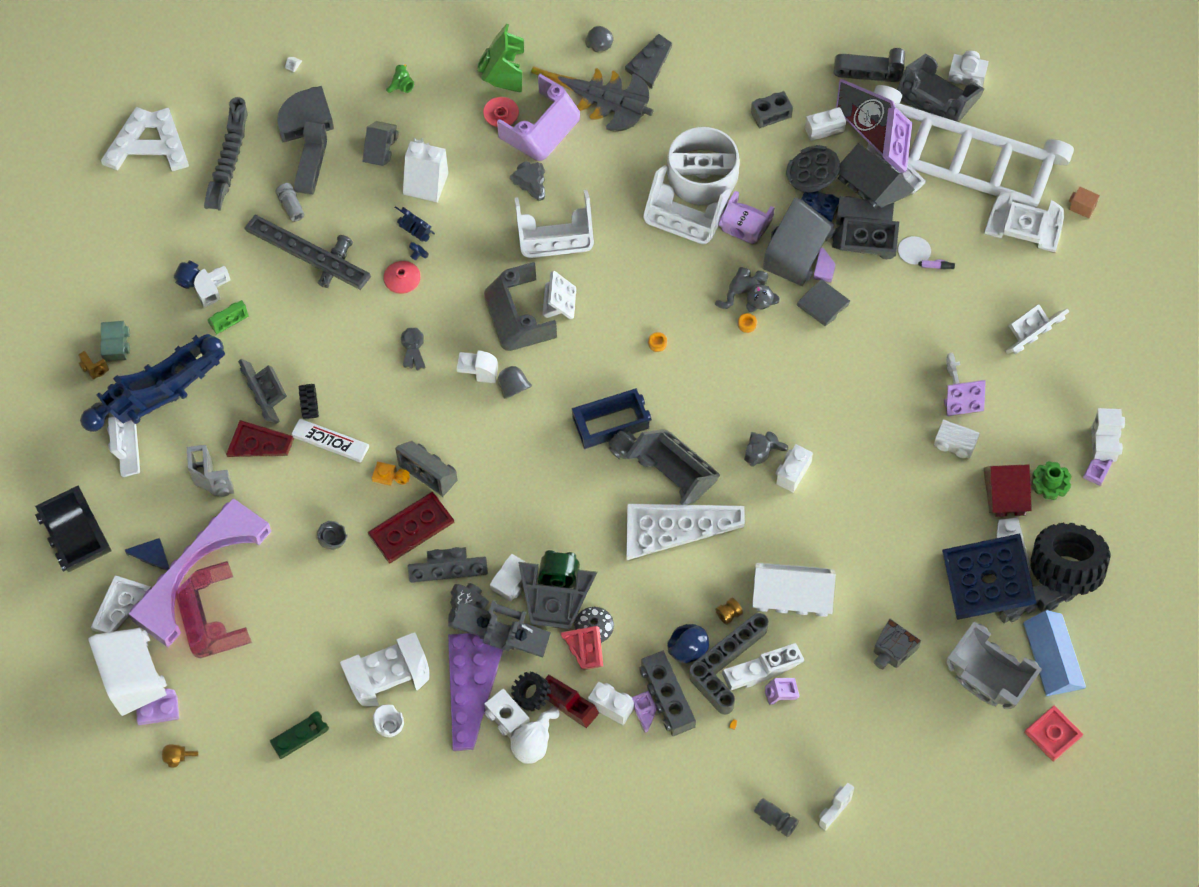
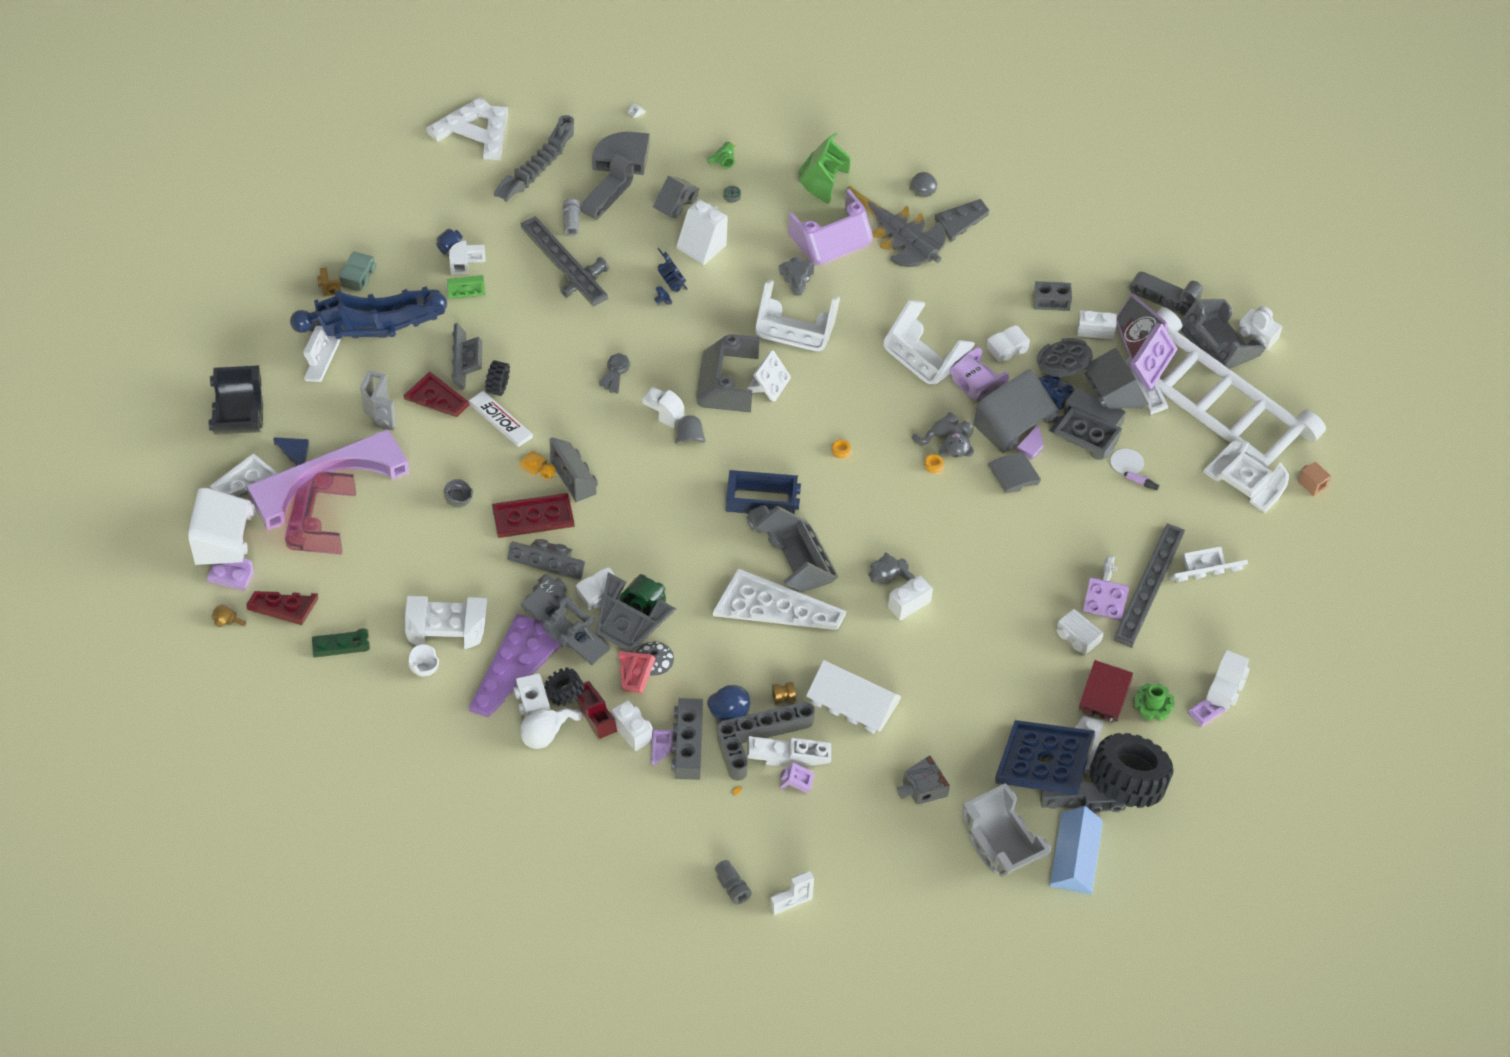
camera: 20 degrees right, 10 degrees down
(230, 720) = (289, 608): none -> dark red wing
(402, 283) = (638, 313): coral dish -> none
(427, 117) = (732, 194): none -> dark grey tile
(501, 106) = (802, 208): coral dish -> none
(723, 162) = (964, 306): white cylinder -> none
(756, 174) = (1008, 343): none -> white brick
(992, 366) = (1149, 585): none -> dark grey tile
(1053, 733) = (1038, 918): coral plate -> none

